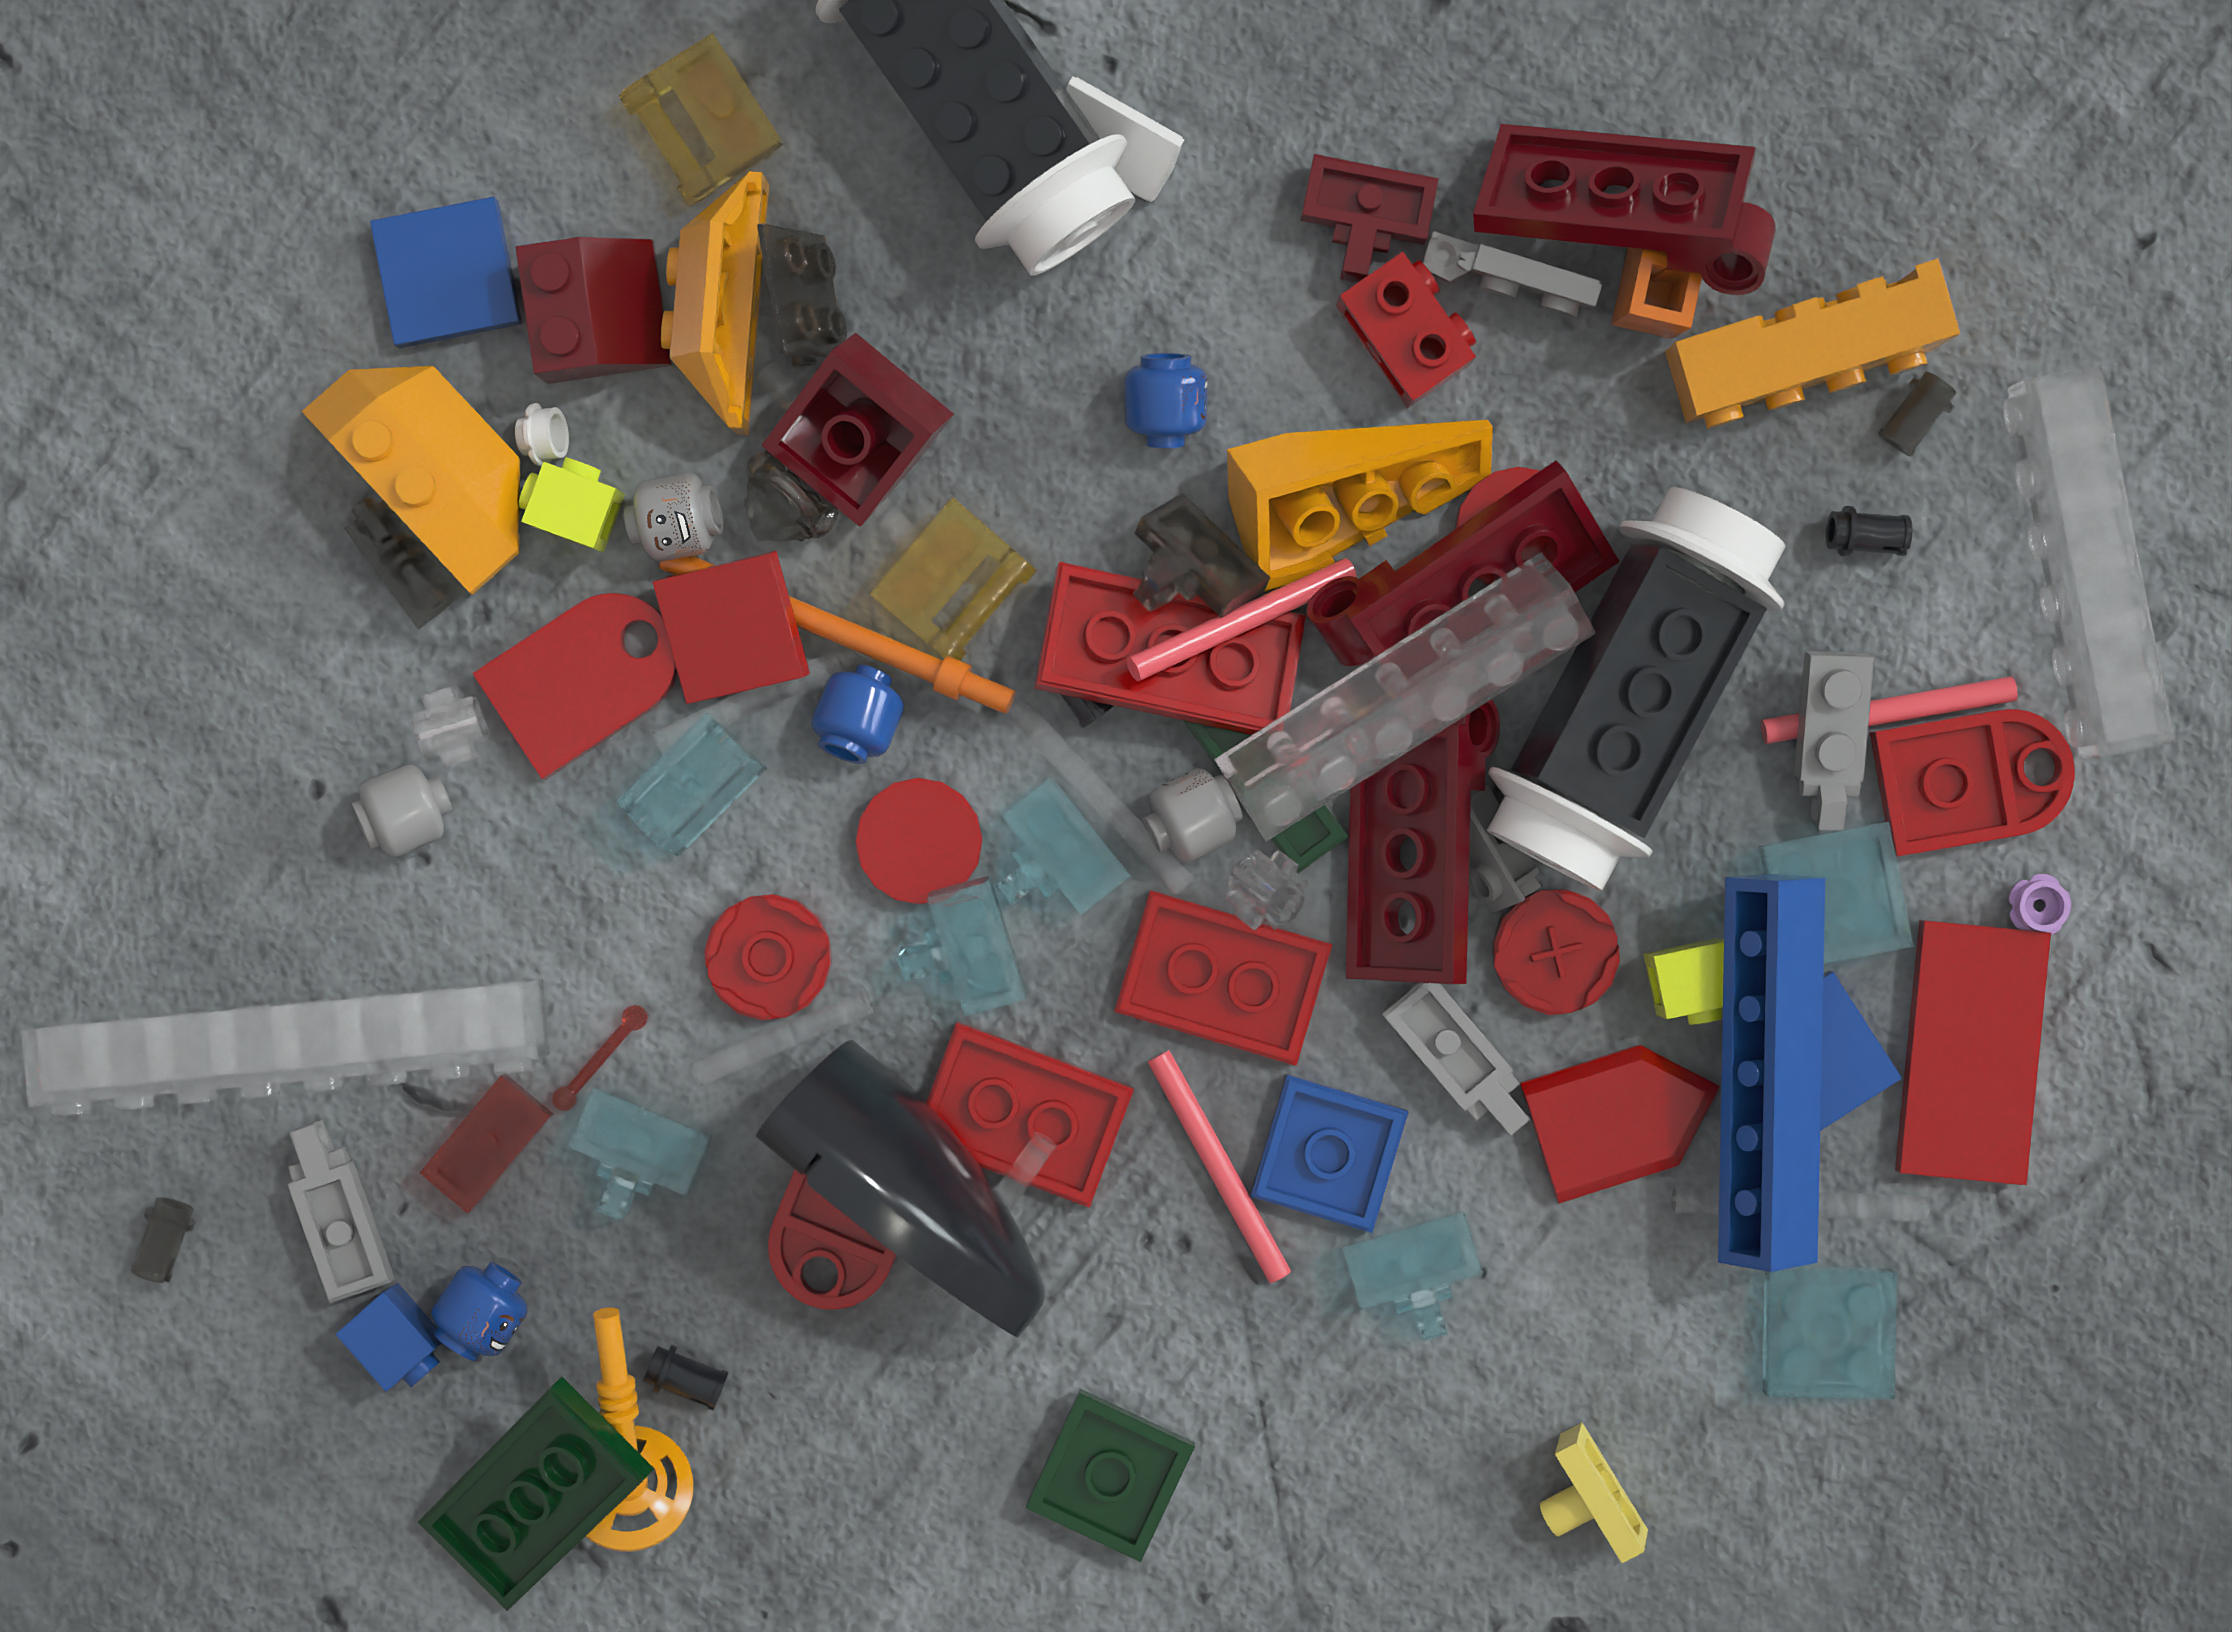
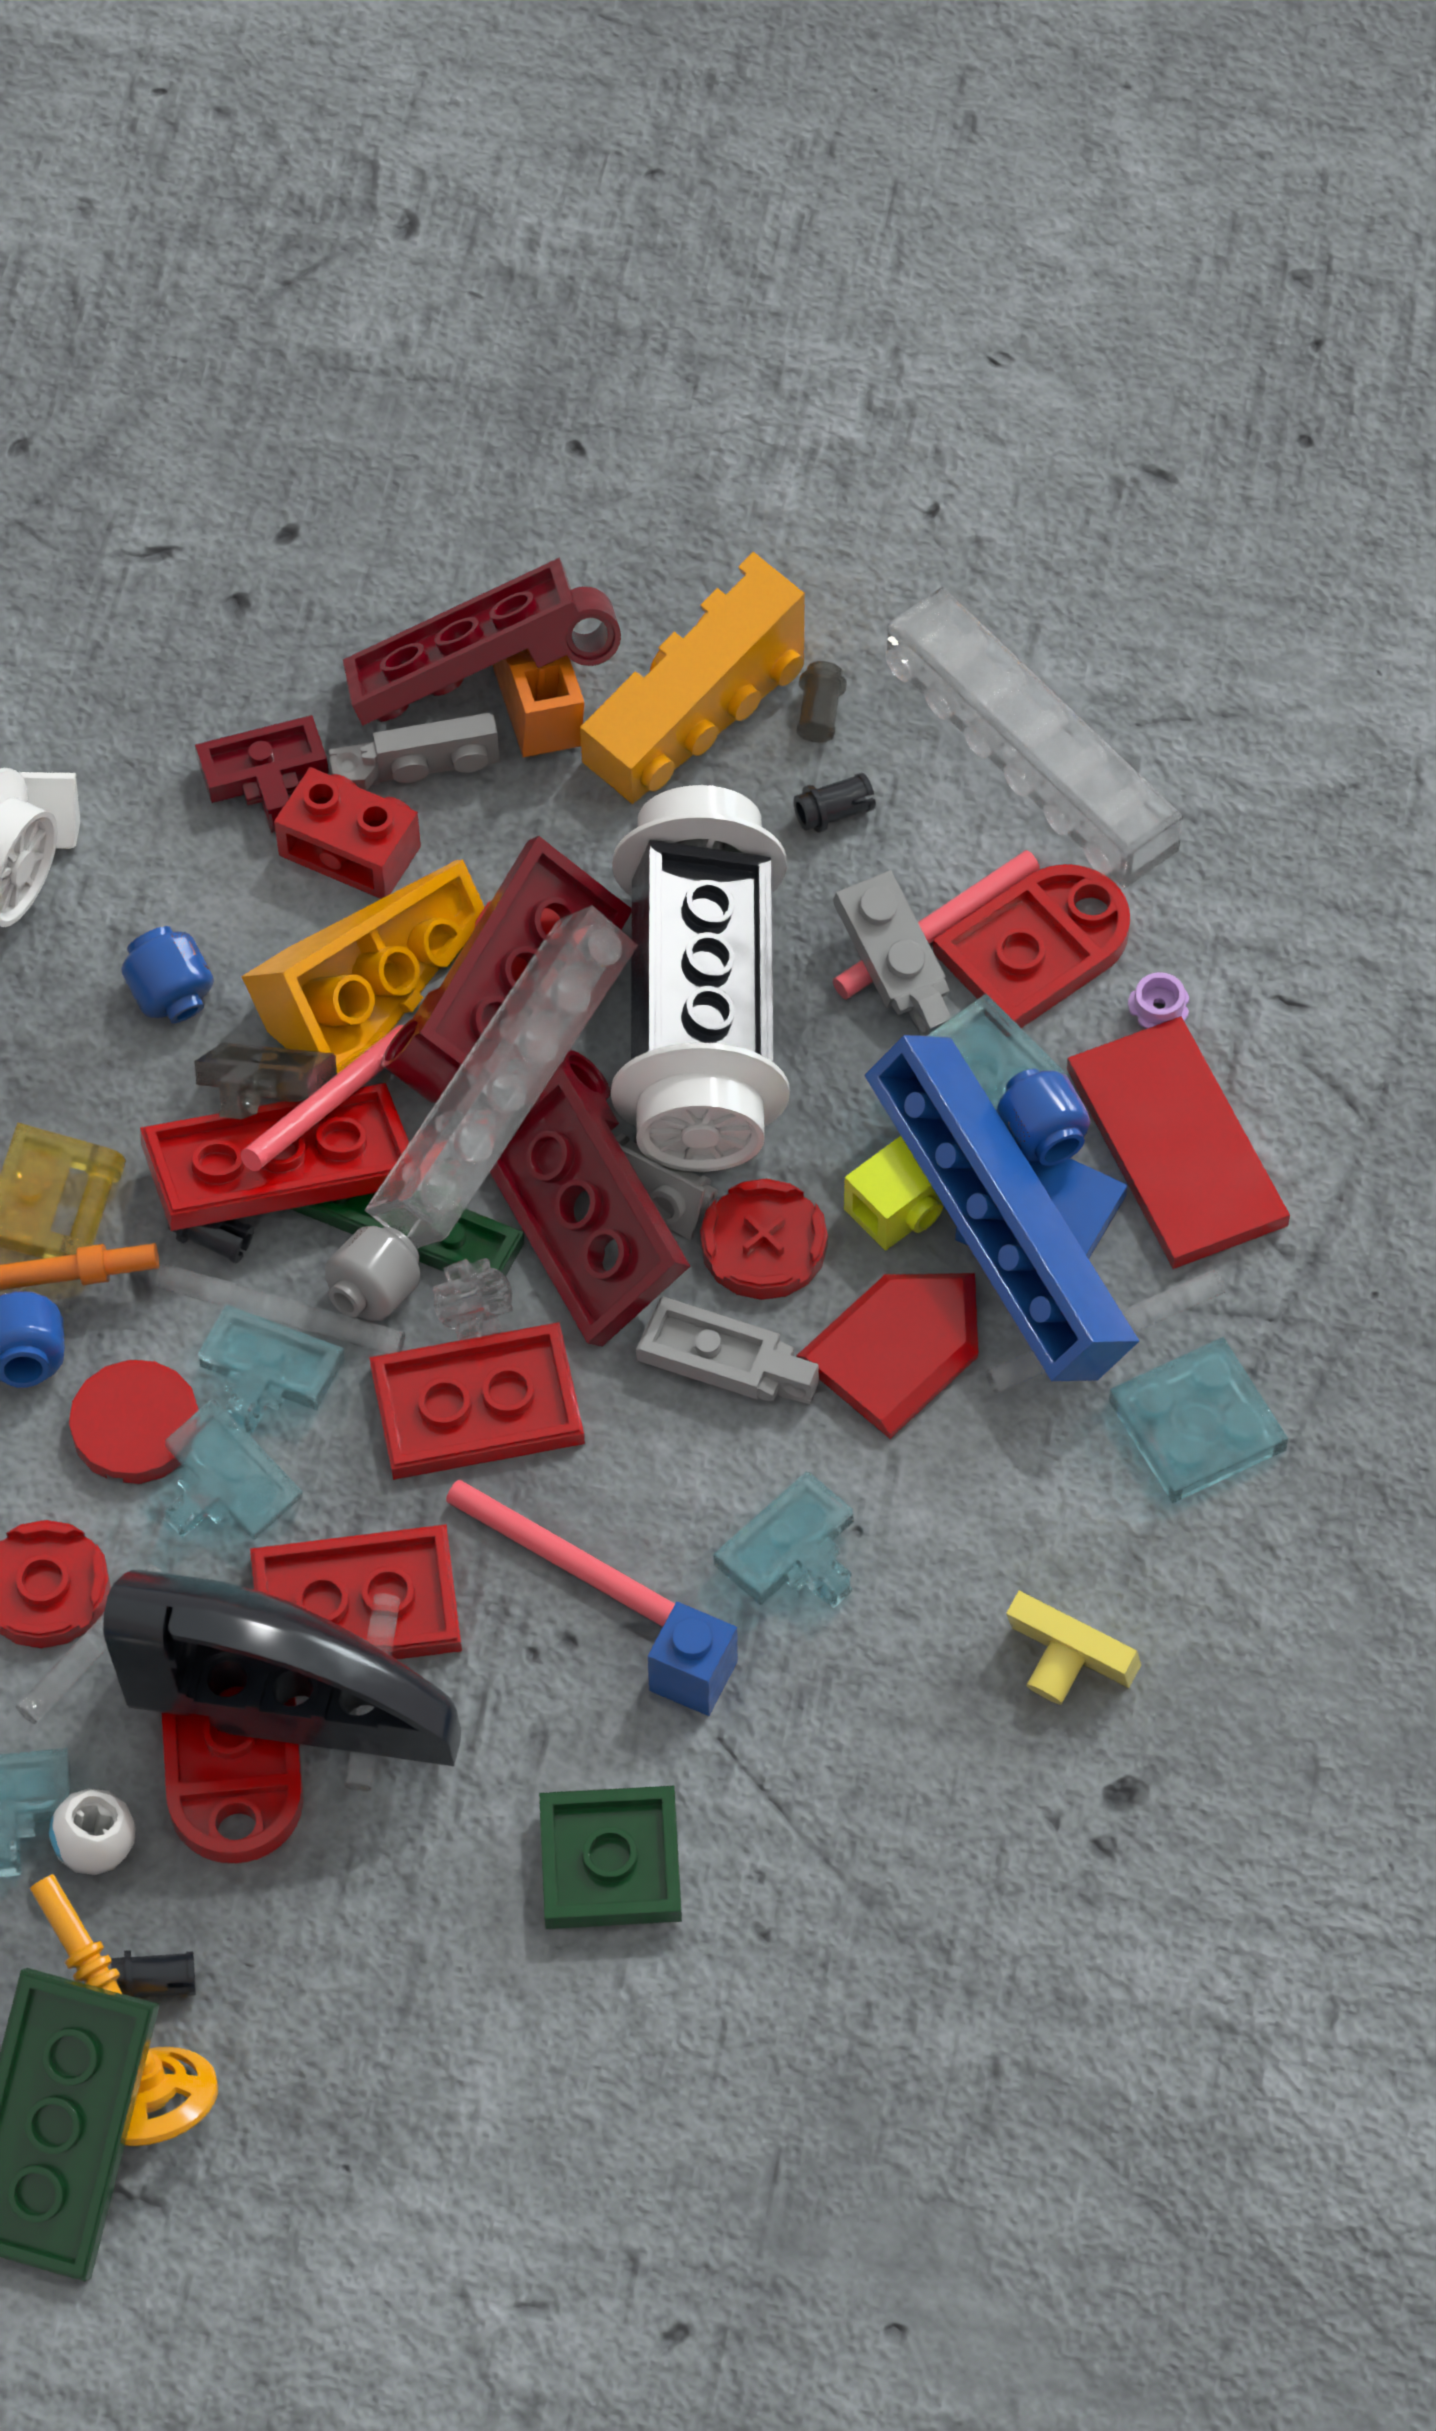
camera: 25 degrees left, 30 degrees down
(693, 1229) = (92, 1831): none -> white piece
(1272, 1340) = (692, 1658): none -> blue brick
(1329, 1153) = (657, 1495): blue tile -> none
(1864, 990) = (1044, 1116): none -> blue head

